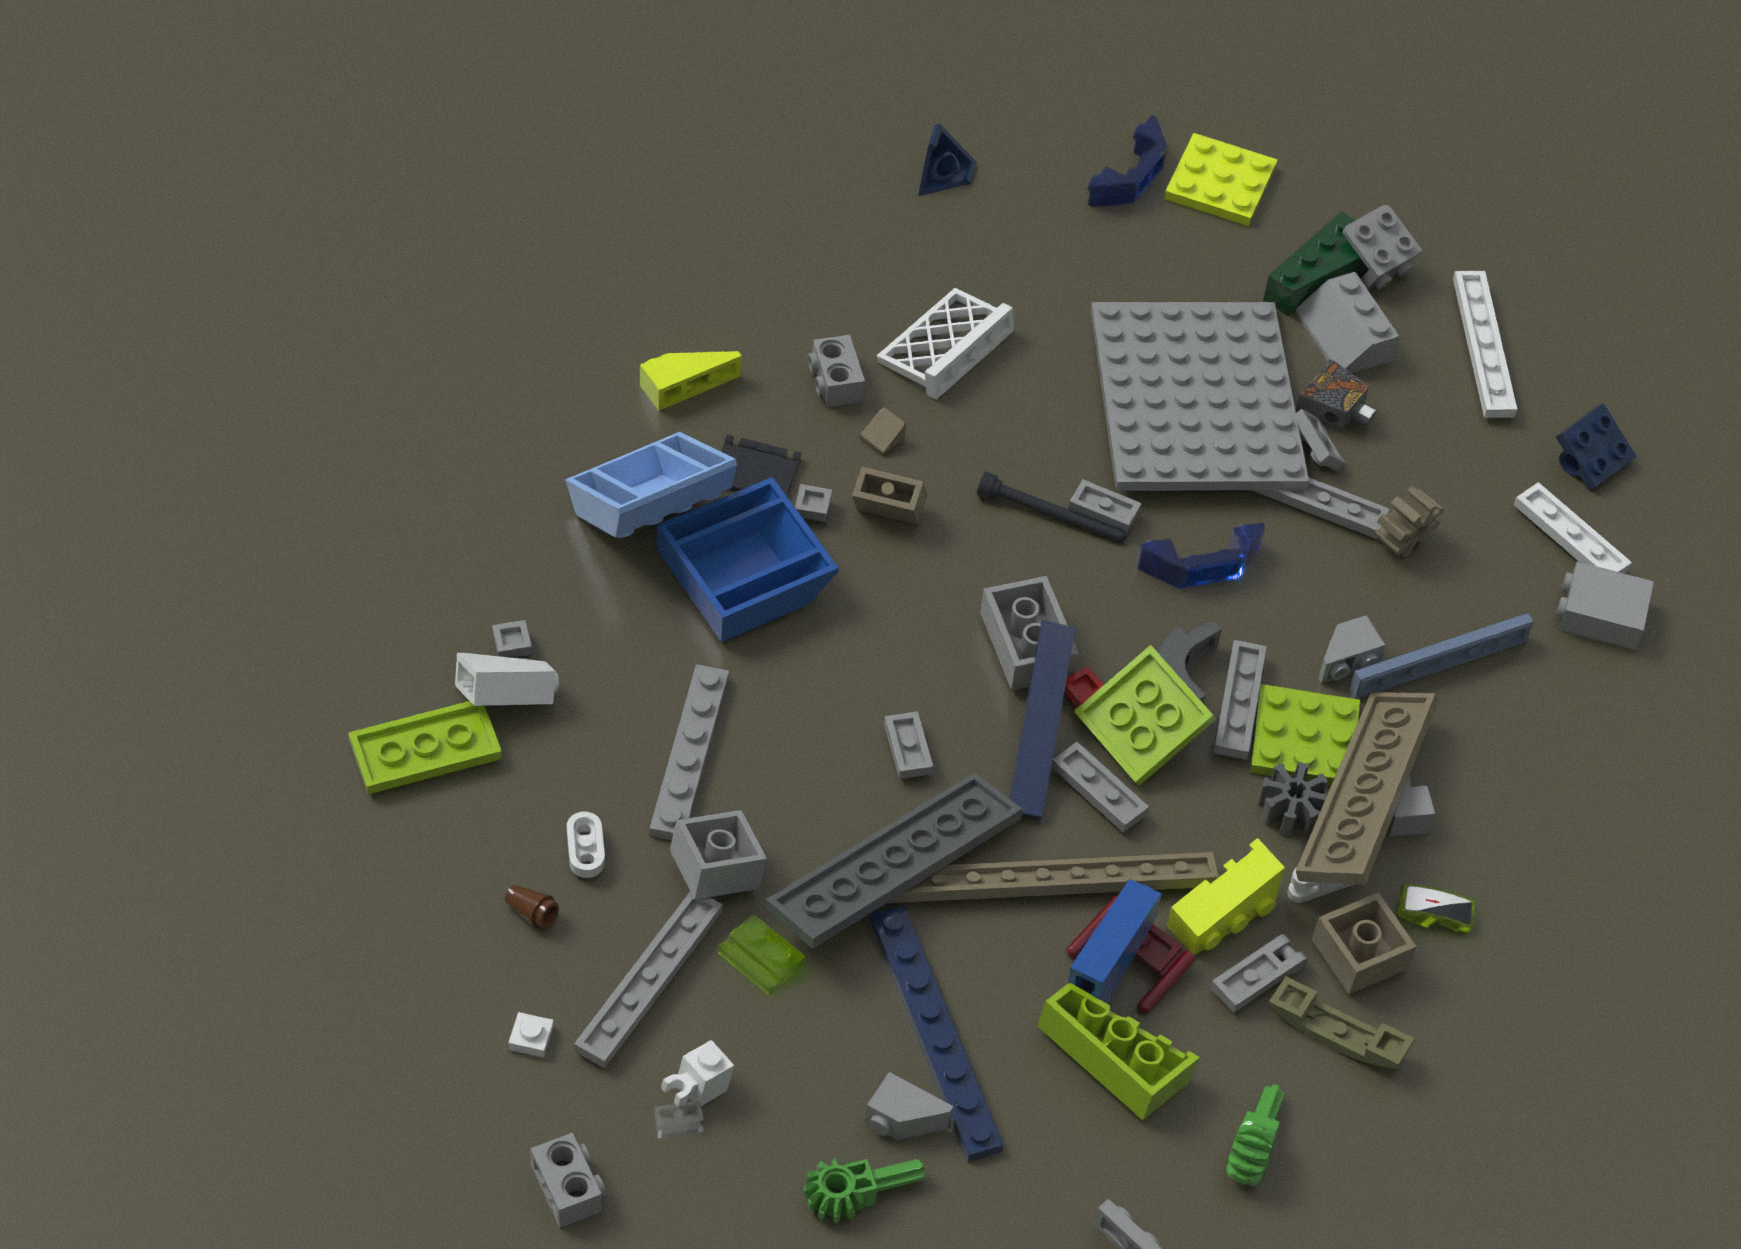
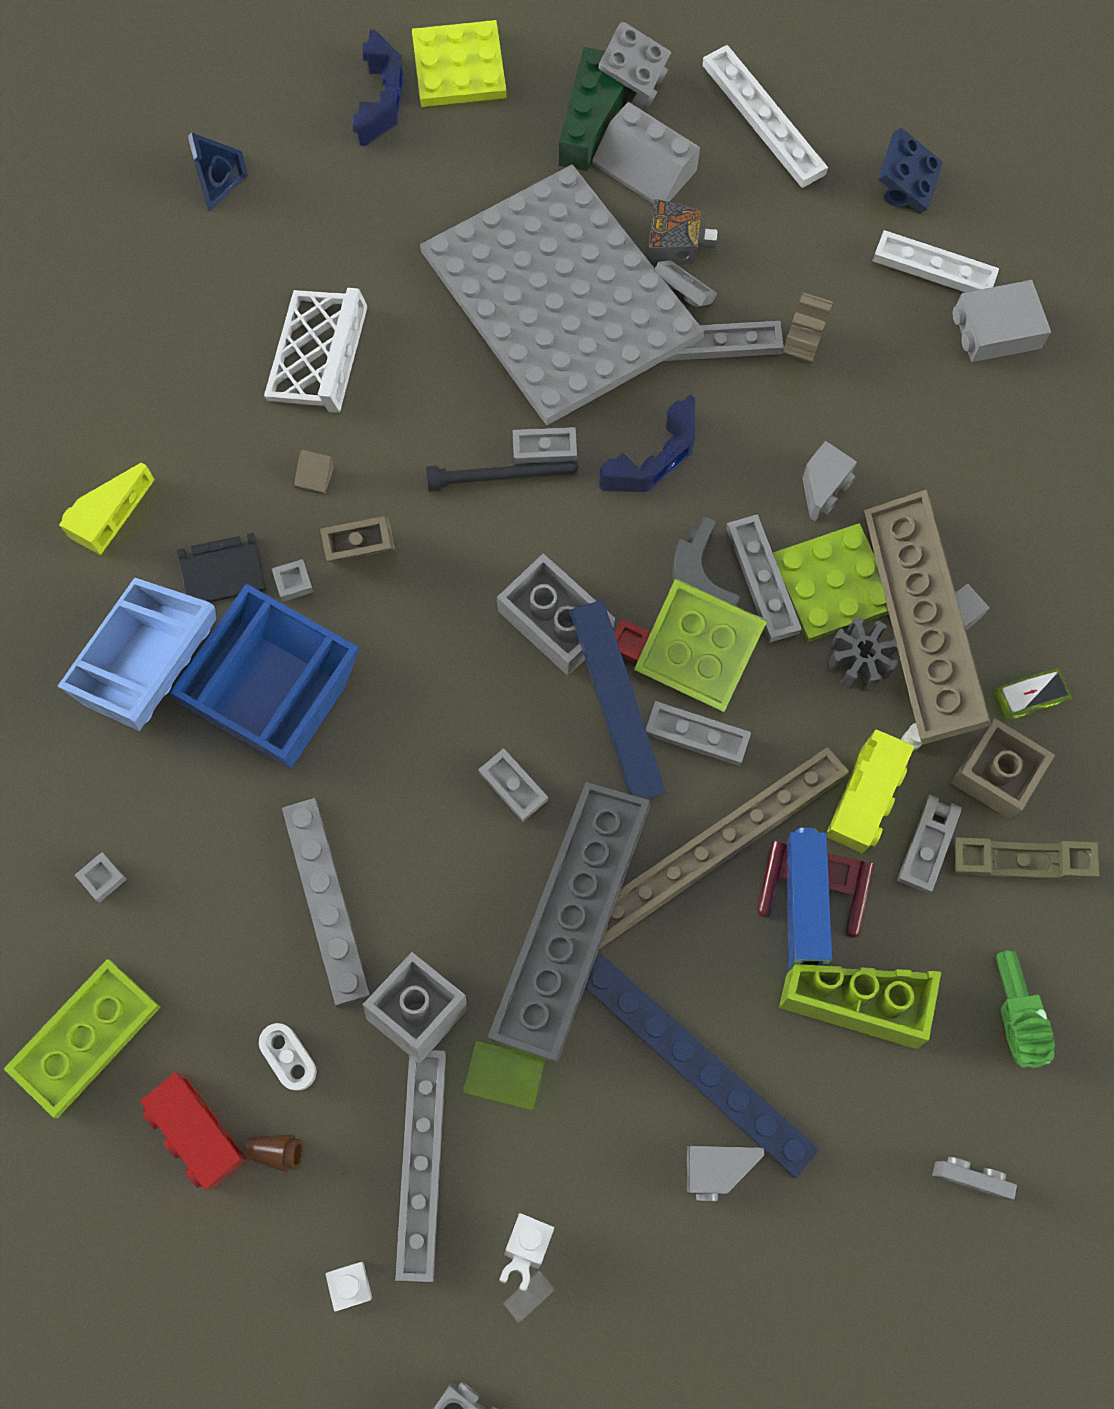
camera: 25 degrees left, 20 degrees up
(473, 855) = (192, 1131): none -> red brick
(505, 680) = (119, 931): white slope -> none
(837, 371) = (243, 429): light grey brick -> none
(857, 1184) = (723, 1269): bright green gear -> none
(1441, 656) = (901, 444): sand blue tile -> none

